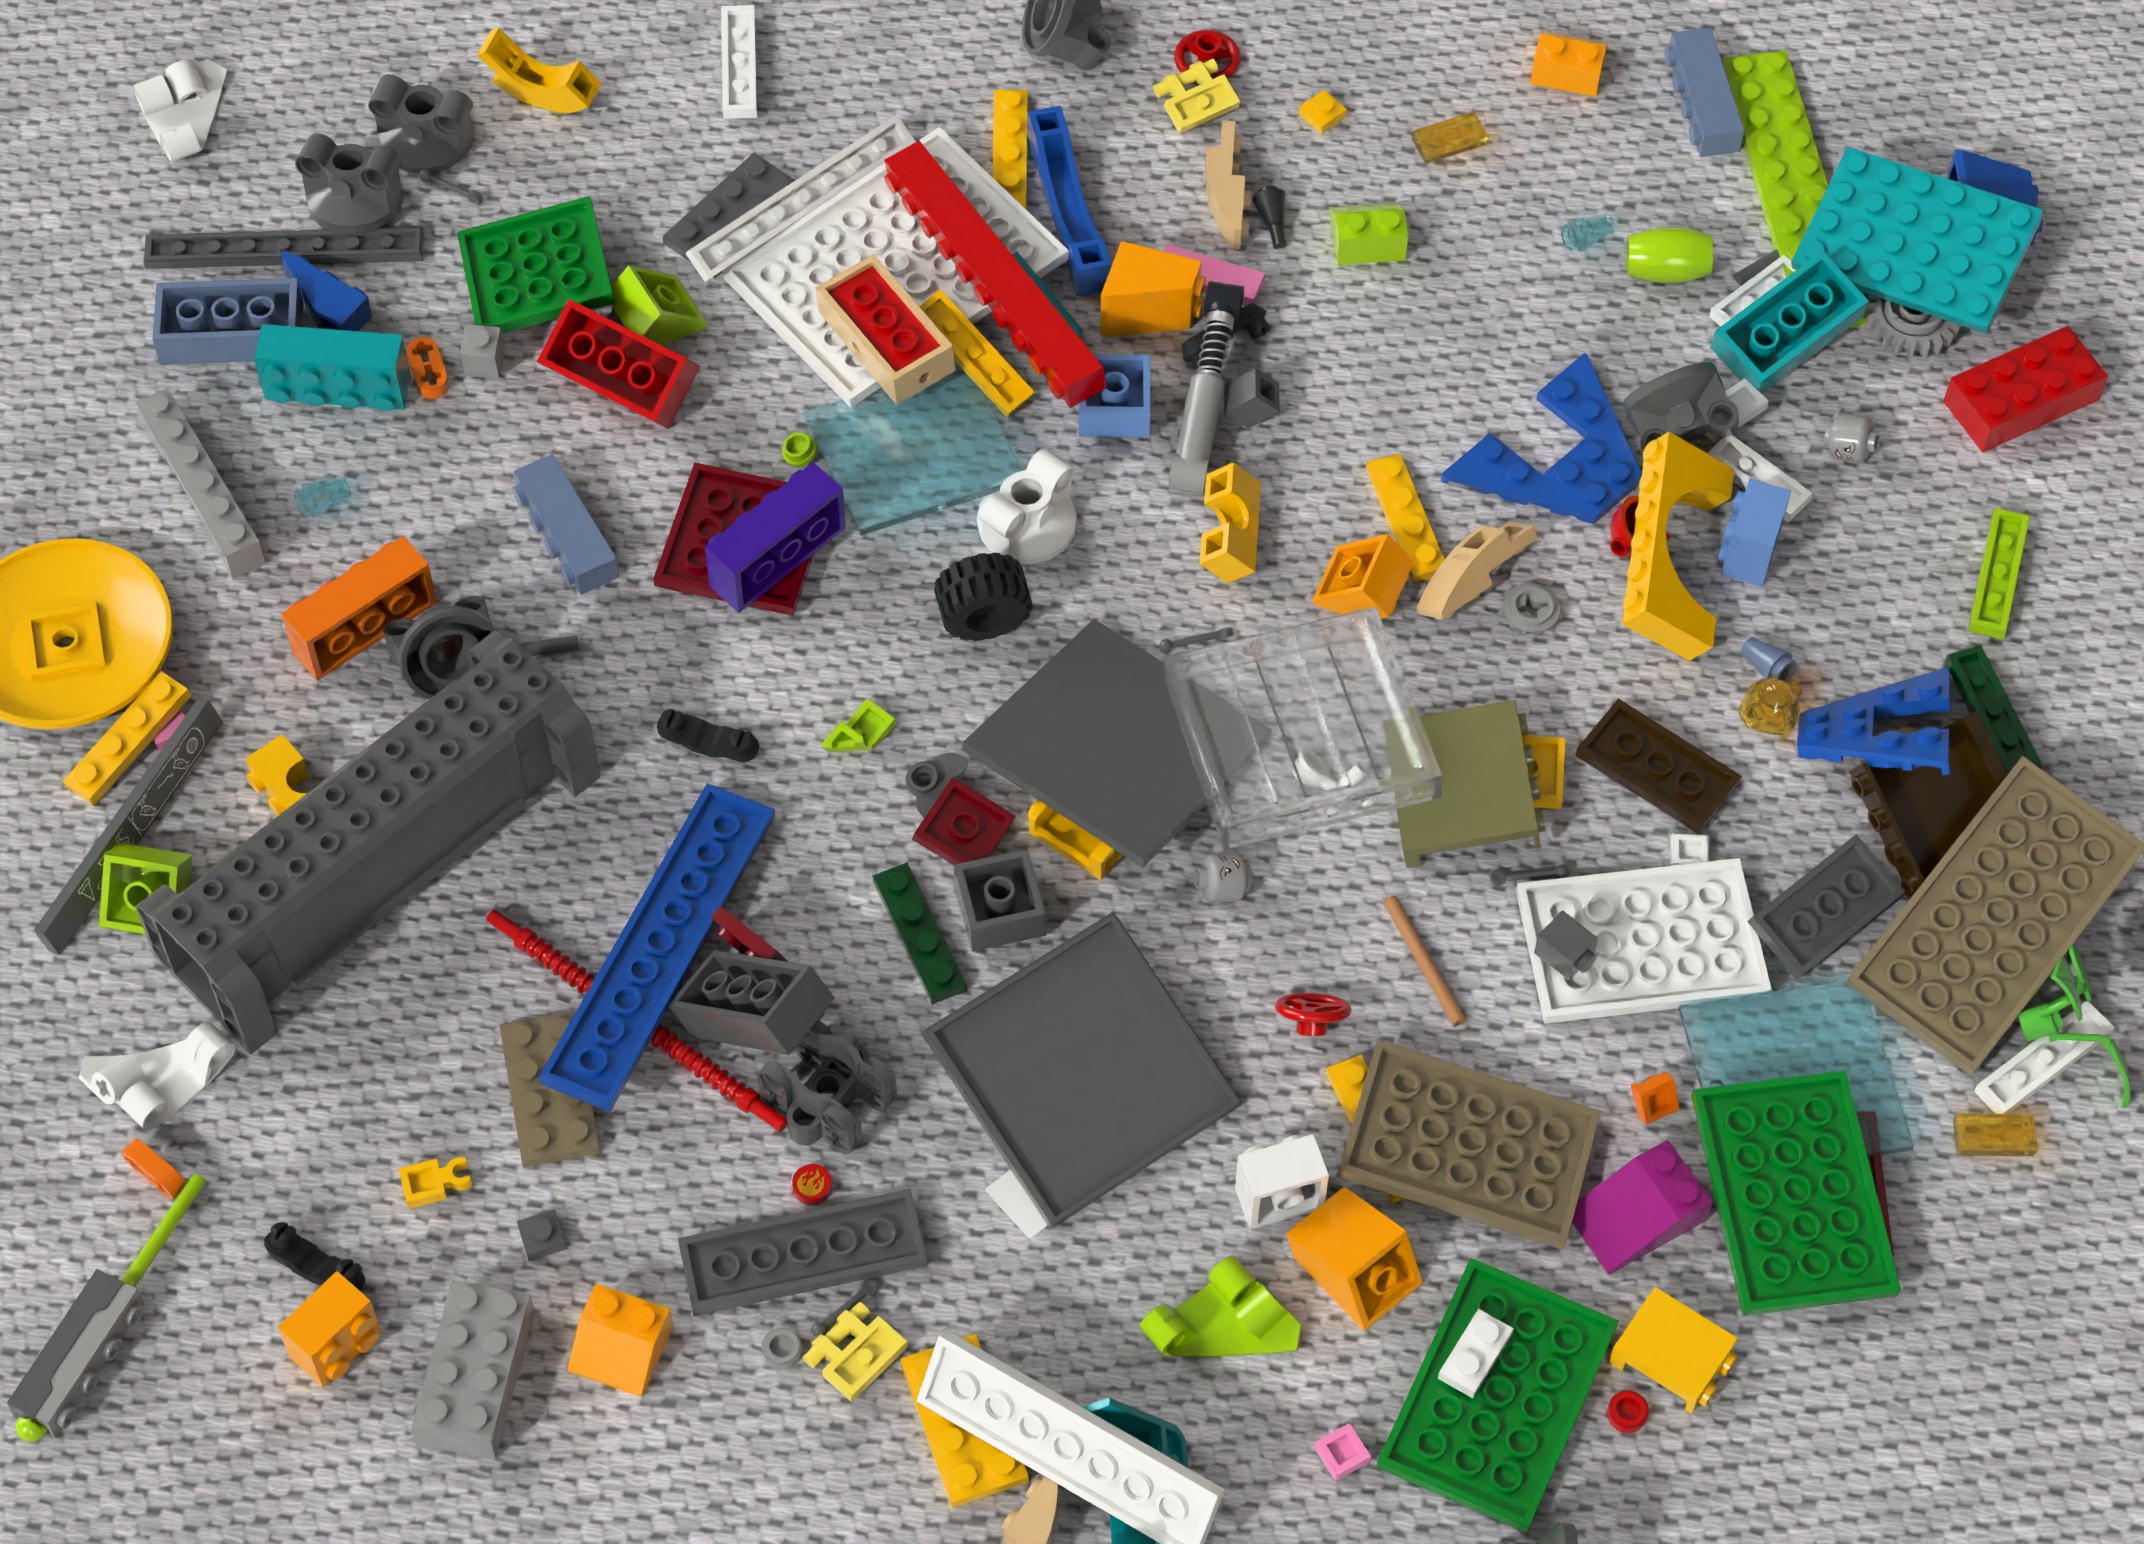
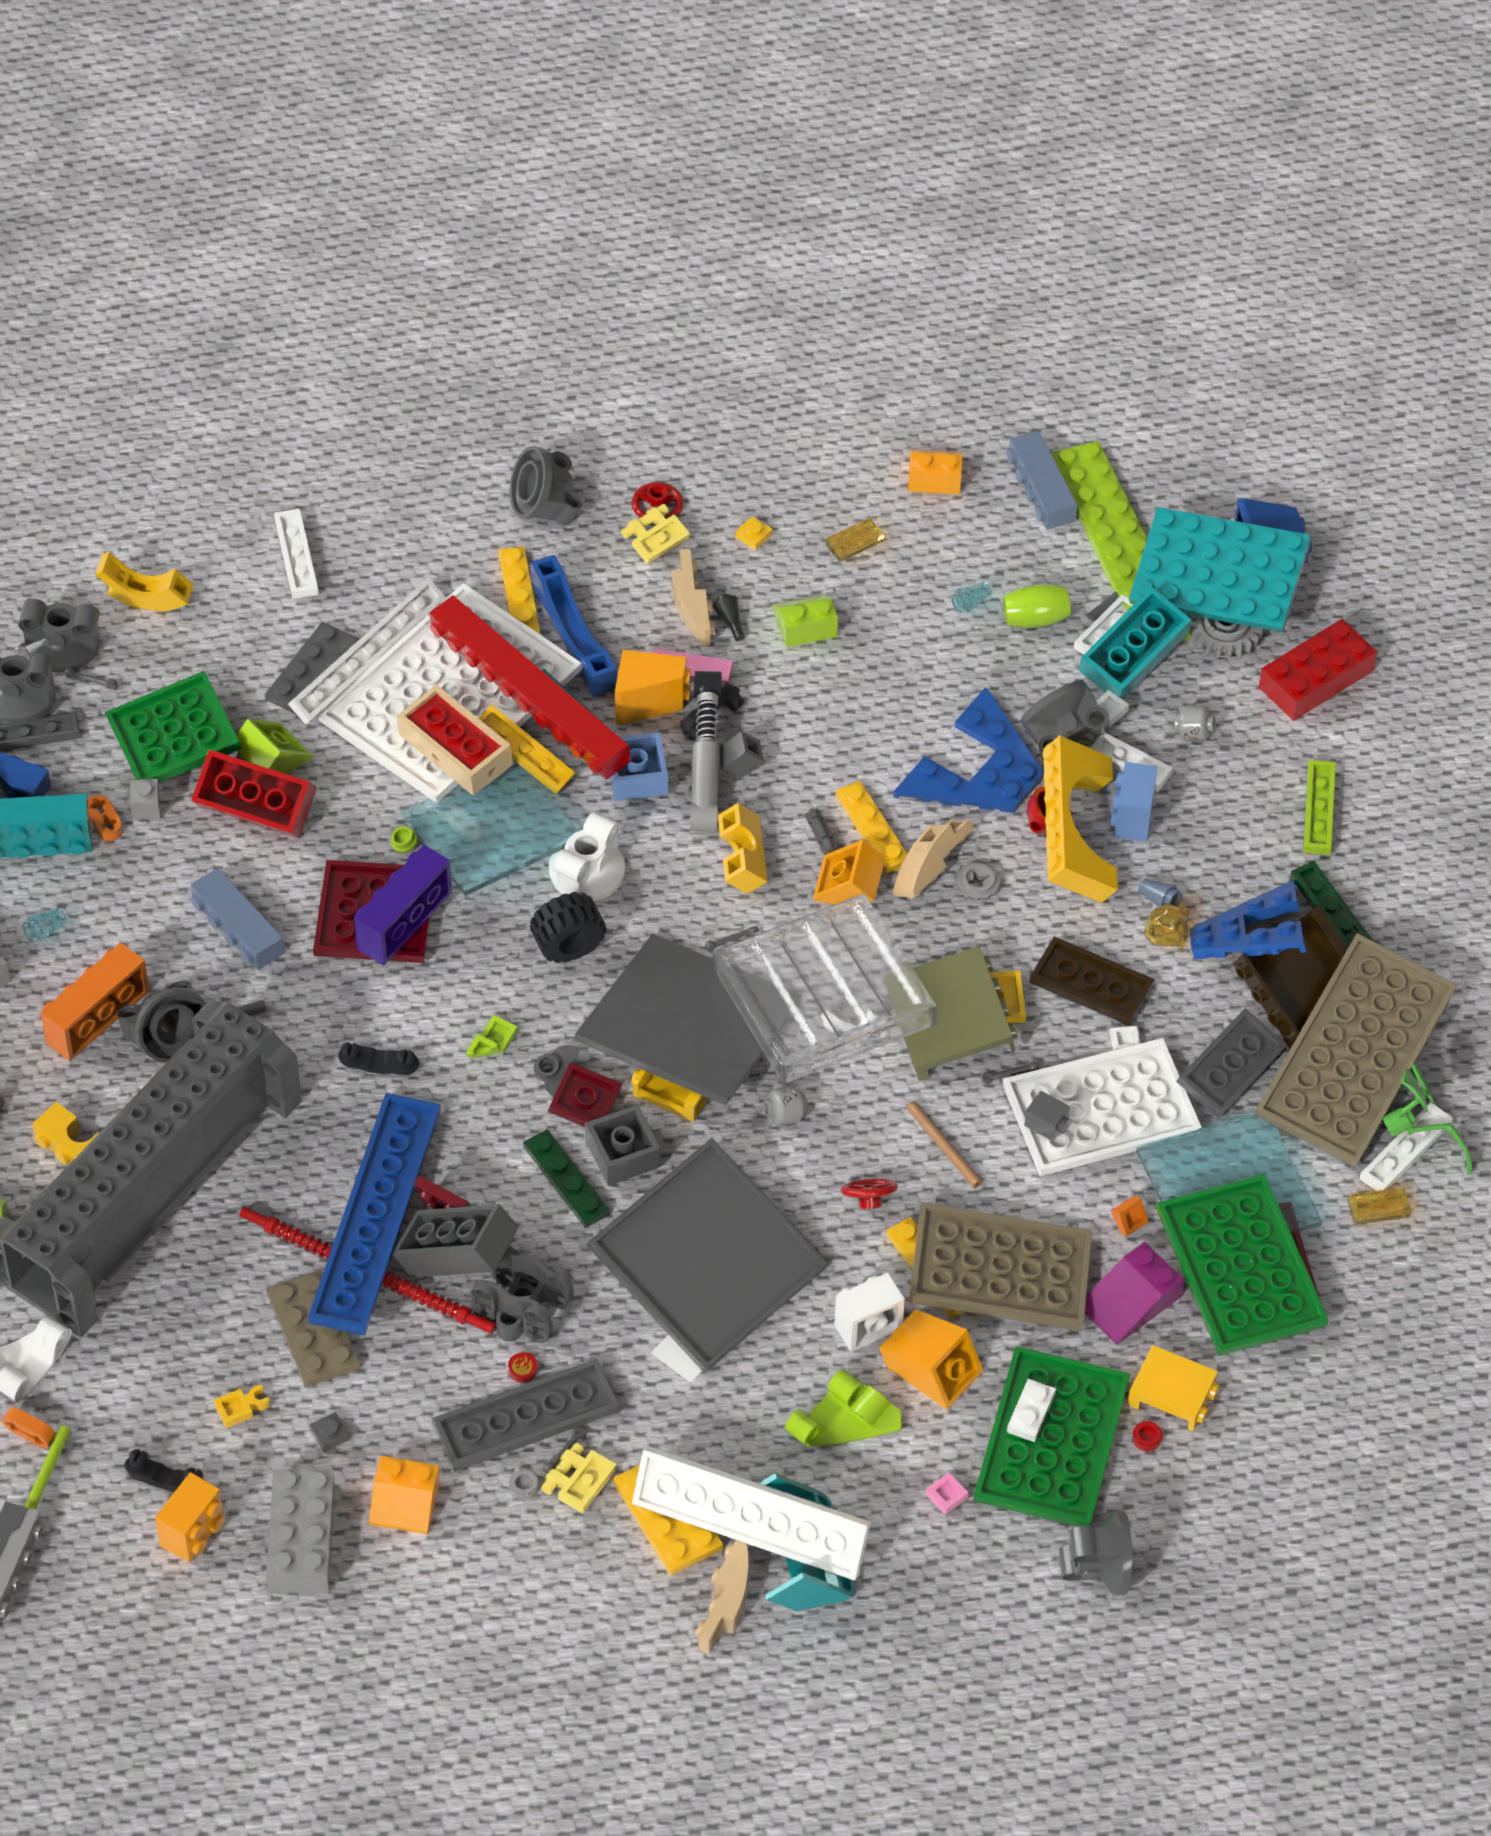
camera: 10 degrees left, 5 degrees down
(1338, 513) = (821, 831): none -> dark grey axle

